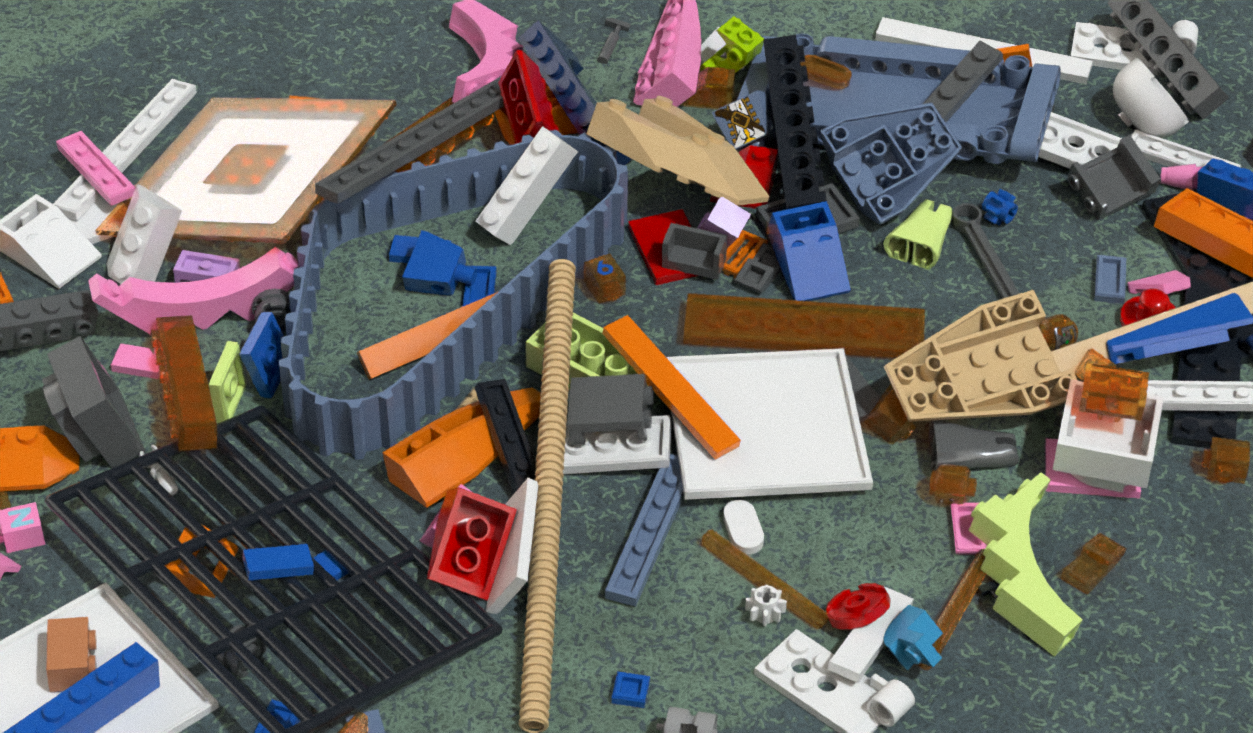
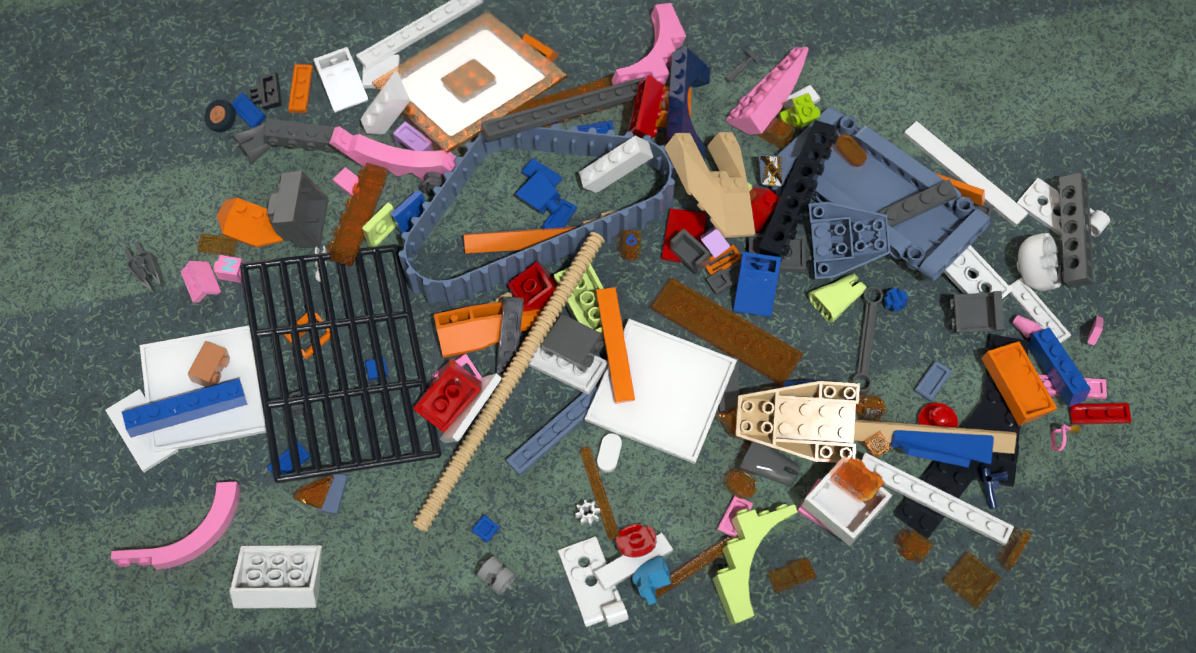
camera: 30 degrees right, 20 degrees up
(96, 168) = (392, 39): bright pink tile -> none
(278, 562) = (338, 361): blue tile -> none
(510, 361) = (534, 286): none -> red slope
(1166, 282) = (961, 400): bright pink tile -> none

